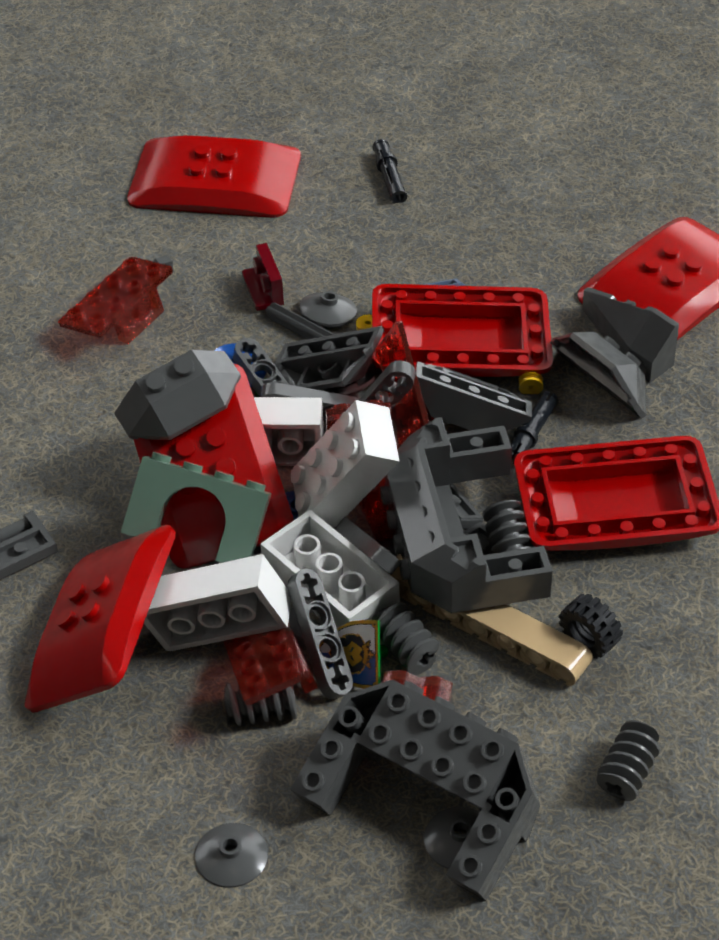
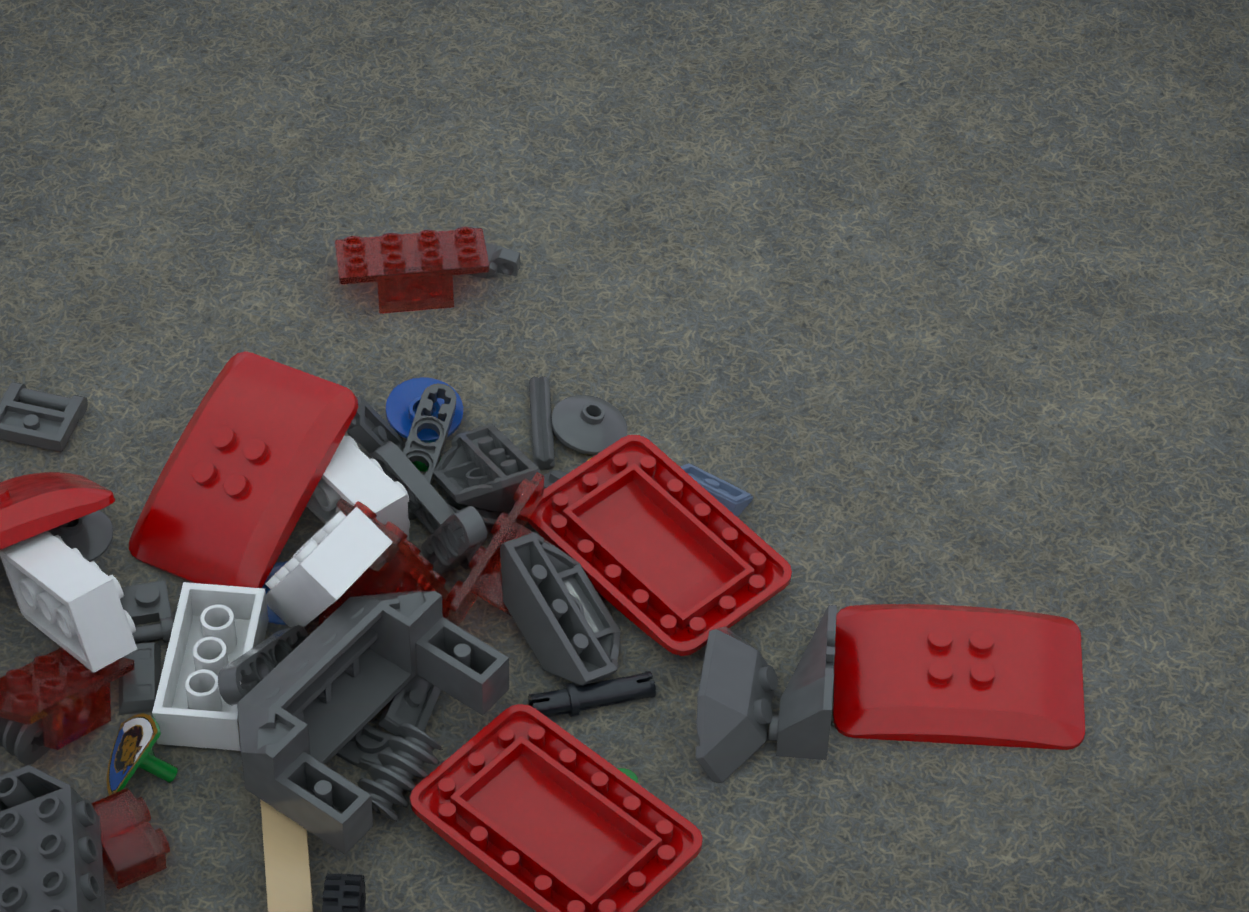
camera: 45 degrees right, 0 degrees up
(160, 480) = (205, 529): sand green arch -> none
(178, 395) = (266, 382): dark grey wedge -> none
(215, 176) = (688, 211): red wedge -> none
(264, 279) = (568, 347): dark red bracket -> none
(315, 634) = (123, 706): dark grey beam -> none
(387, 164) = (857, 324): black pin -> none
(407, 638) = (193, 779): dark grey piece -> none
(530, 383) = (655, 654): yellow piece -> none

